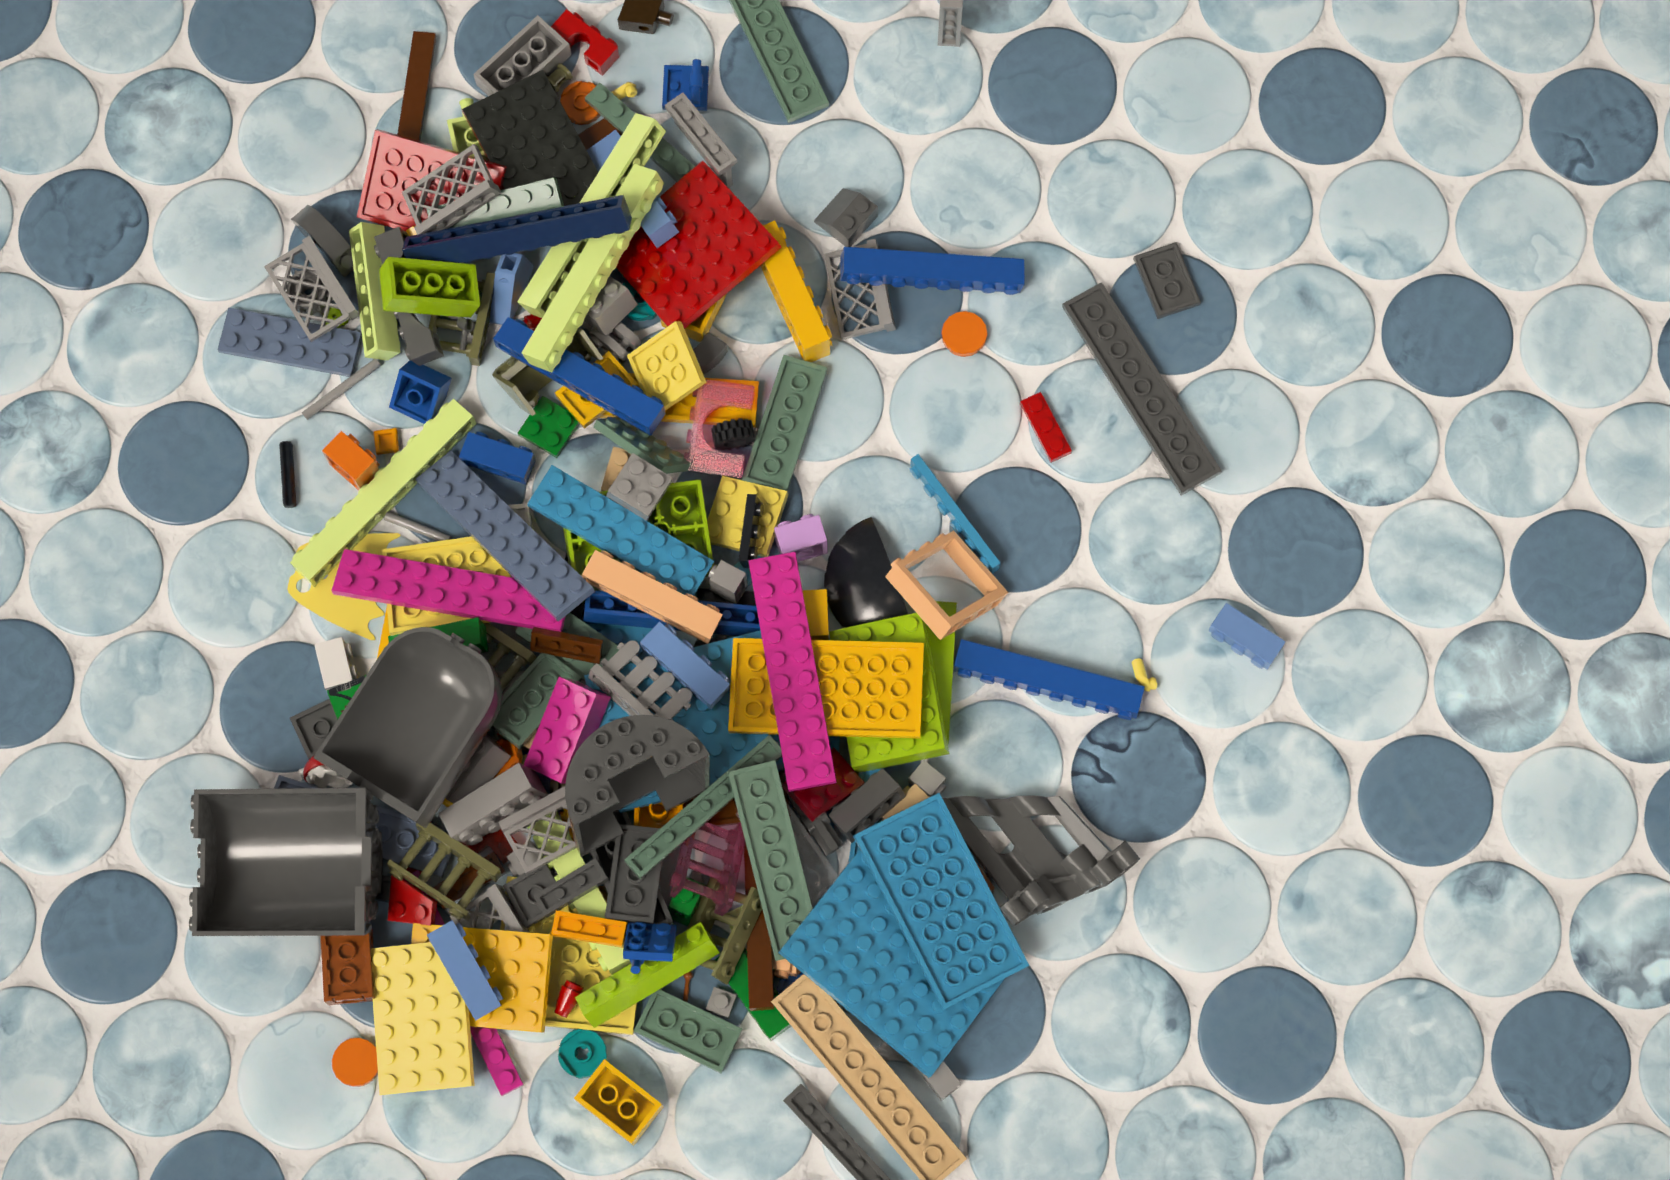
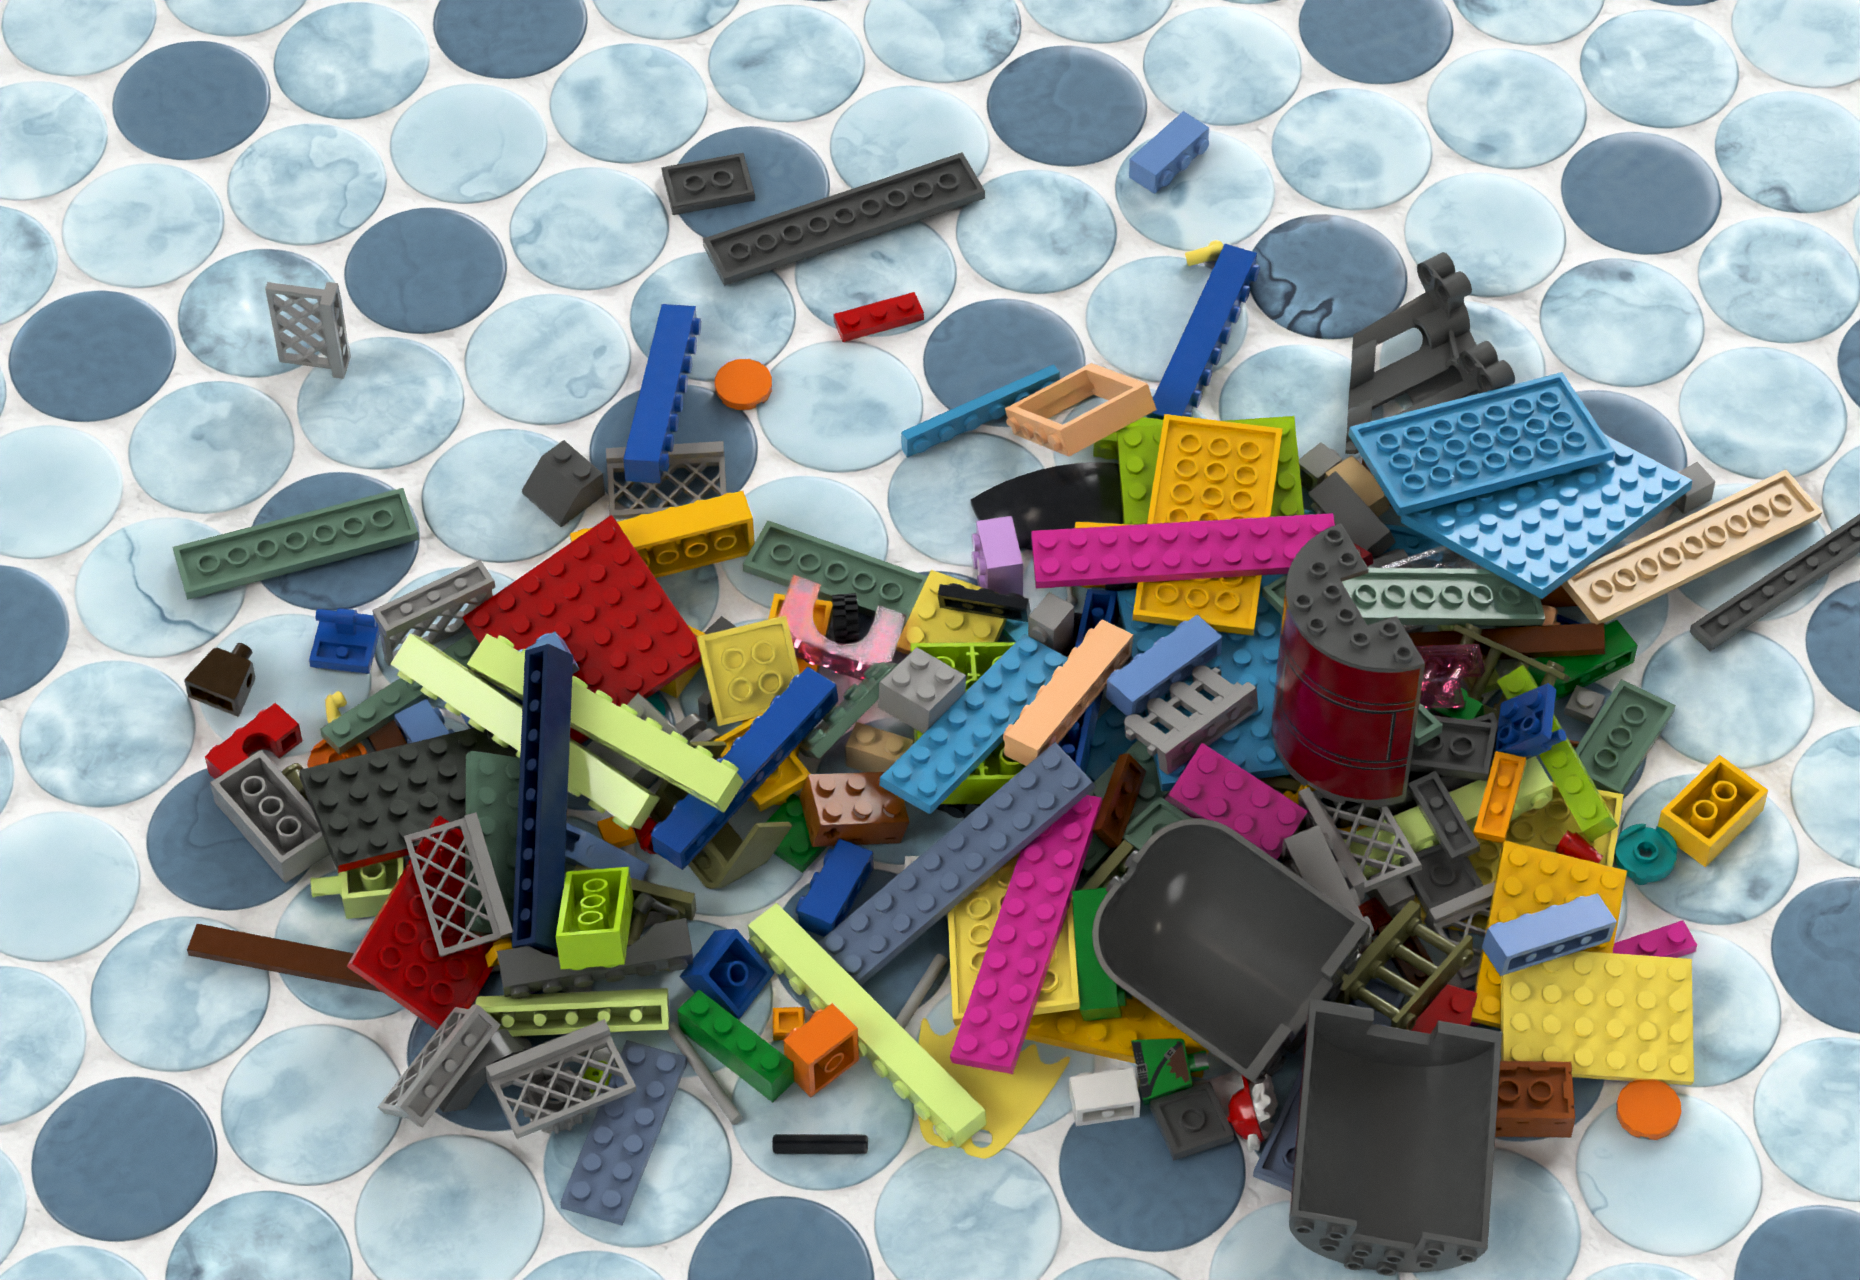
camera: 85 degrees left, 20 degrees down
(315, 206) = (440, 1064): none -> light grey fence
(359, 402) = (736, 1046): none -> green brick
(560, 447) = (852, 809): none -> dark orange piece

